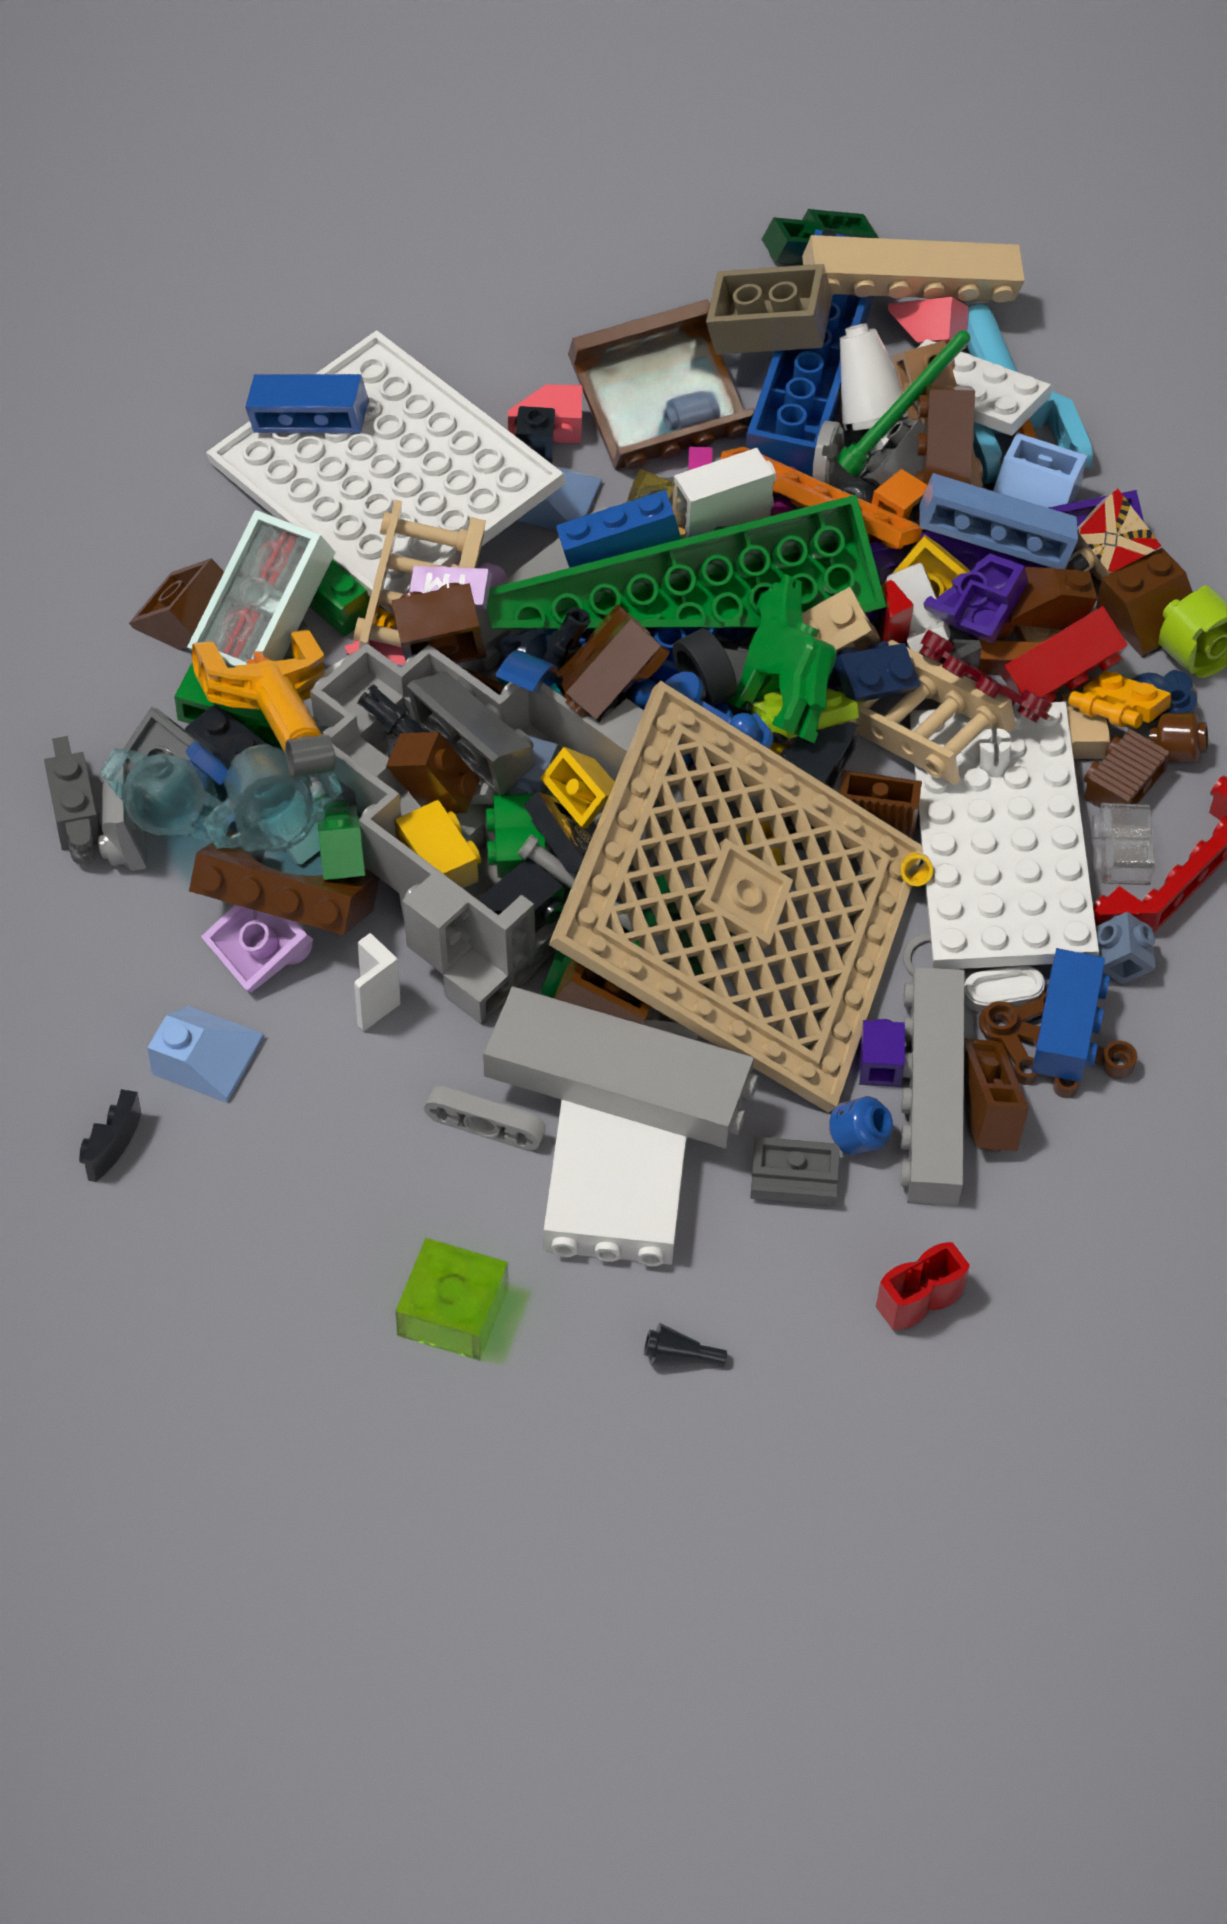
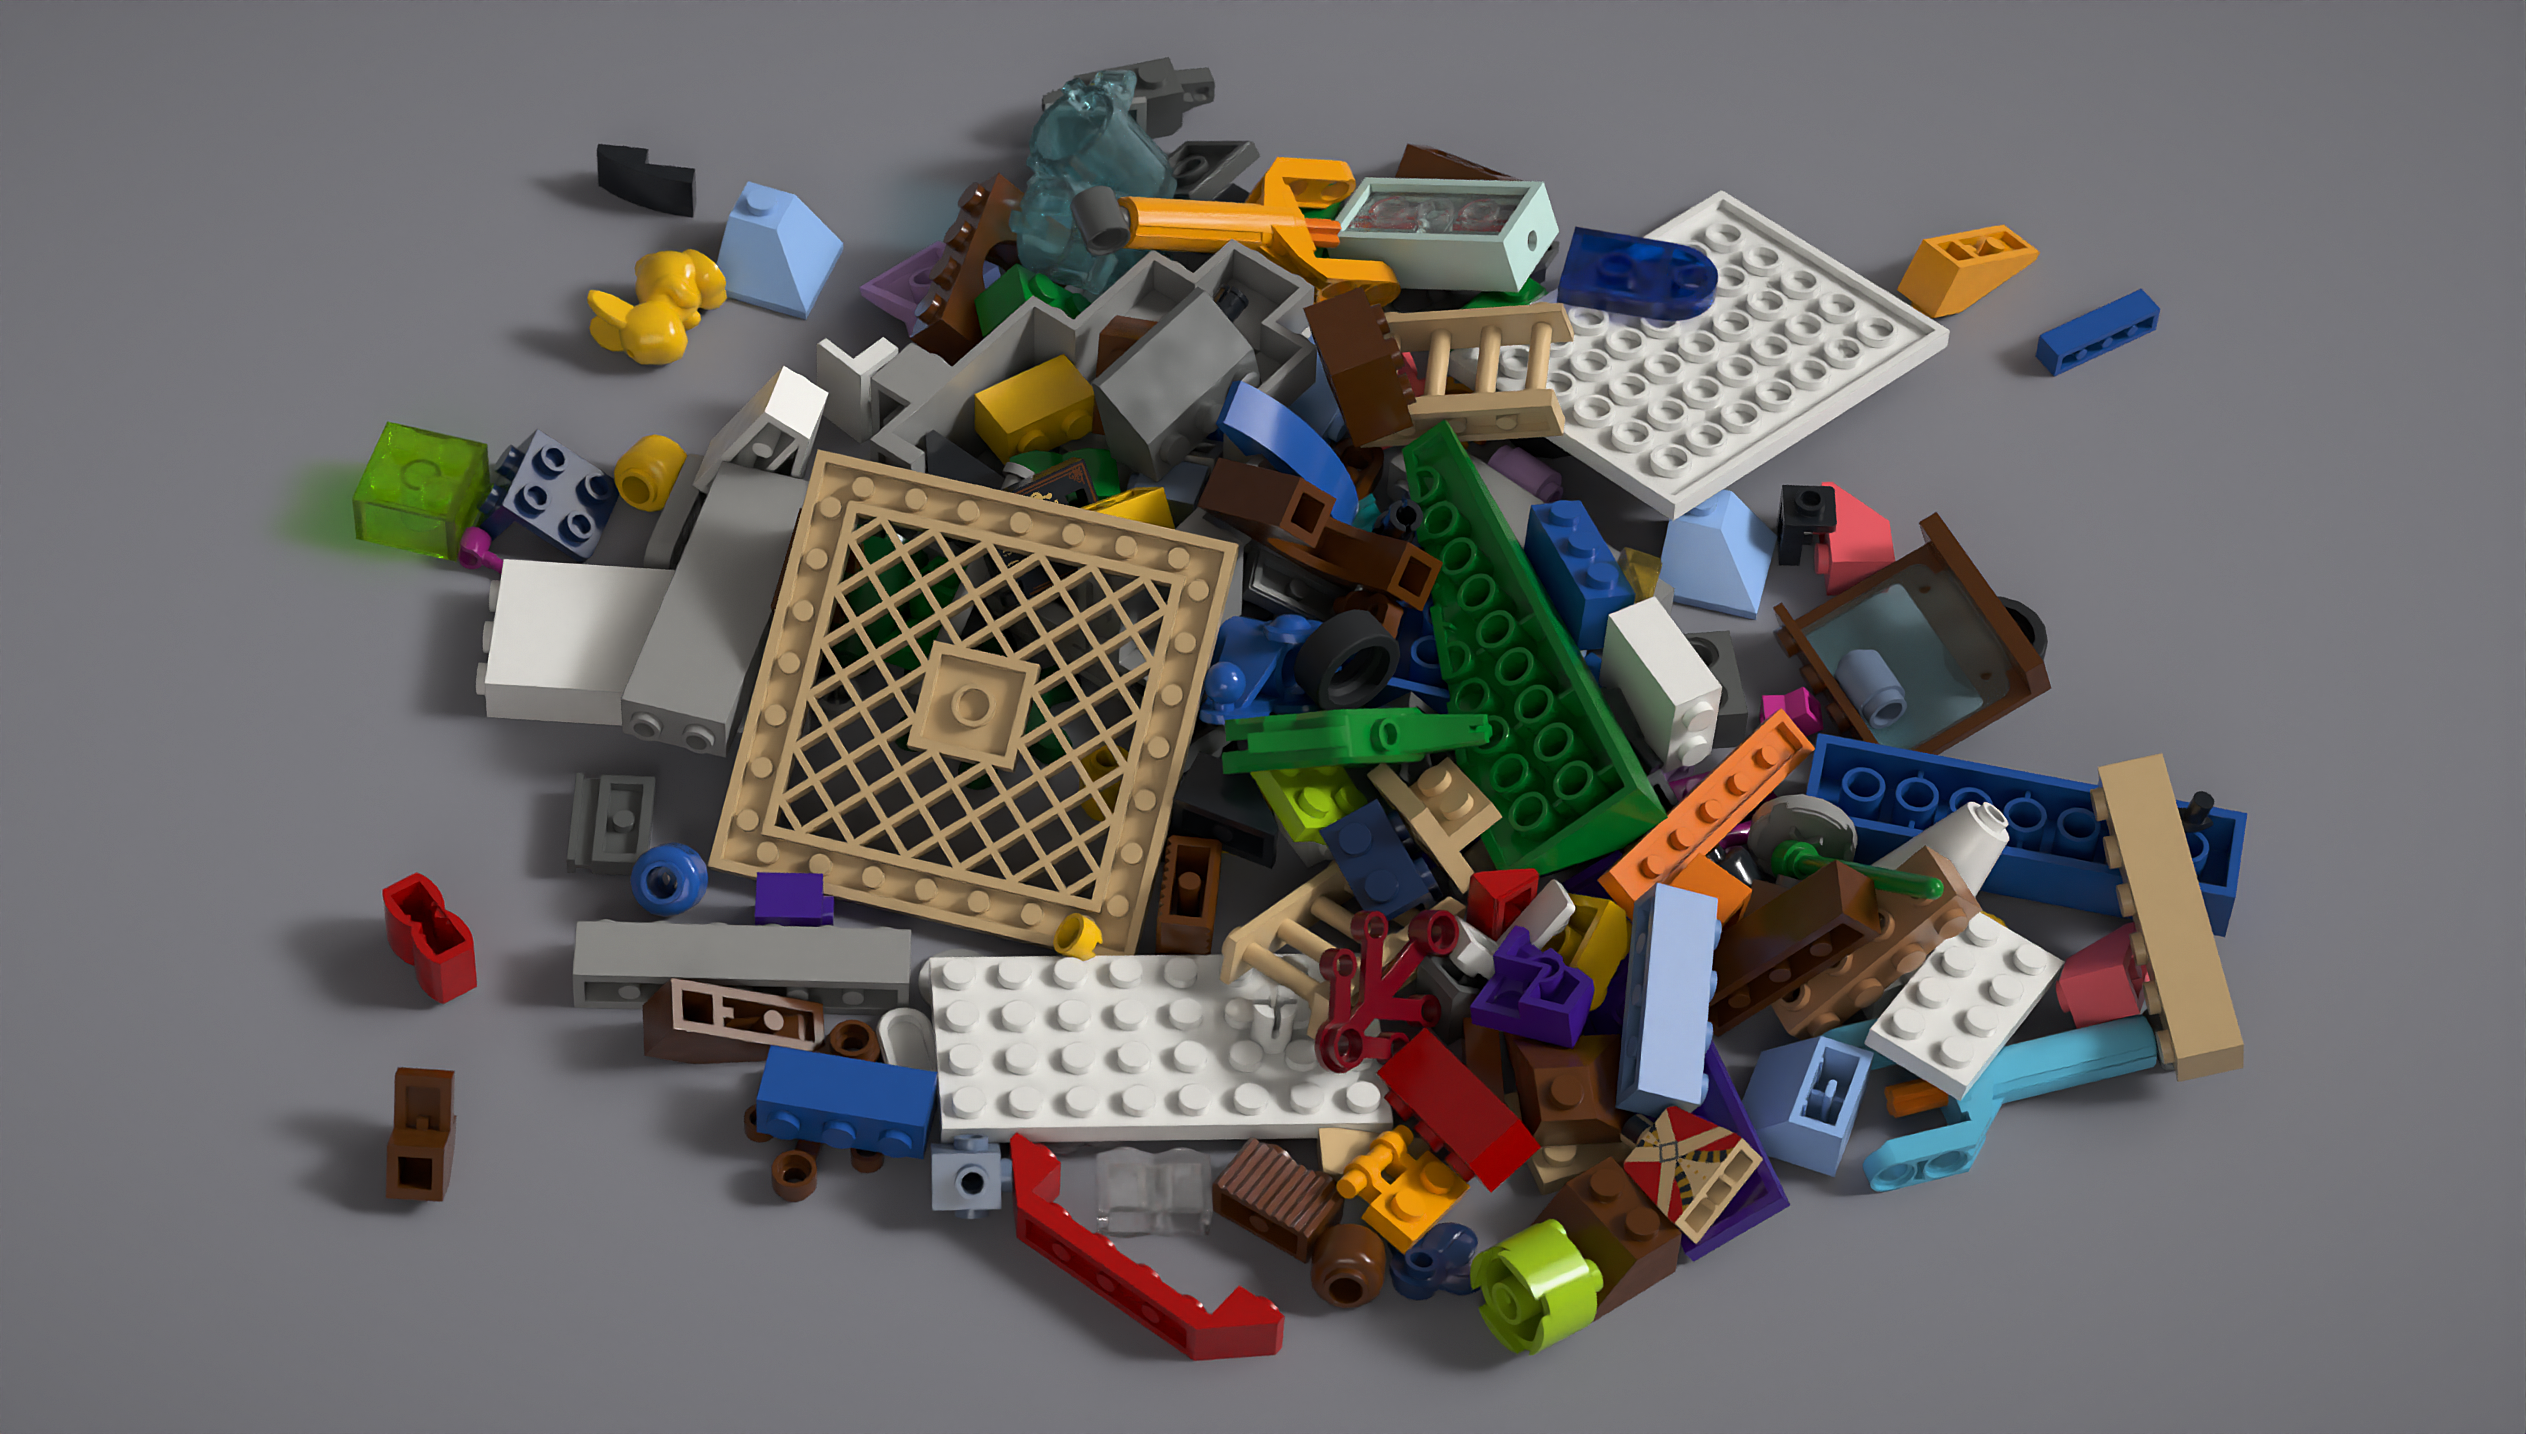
camera: 85 degrees right, 5 degrees down
(207, 762) = (1163, 183): blue tile -> none
(251, 1116) = (669, 293): none -> yellow animal
(300, 328) = (1963, 268): none -> light orange slope
(307, 403) = (1790, 258): blue brick -> none
(311, 493) = (1636, 276): none -> clear blue tile
(358, 270) = (2097, 332): none -> blue piece
(432, 578) = (1442, 385): lavender tile -> none
(440, 1135) = (649, 472): none -> yellow head
(458, 1210) = (549, 495): none -> dark blue bracket
(461, 1025) = (770, 431): none -> white wedge
(517, 1256) = (474, 550): none -> magenta hand
(674, 1348) = (359, 701): black cone -> none
(769, 309) = (2035, 732): dark tan brick -> none
(788, 238) = (2281, 851): dark green slope -> none
(1113, 1297) = (422, 1135): none -> reddish brown brick

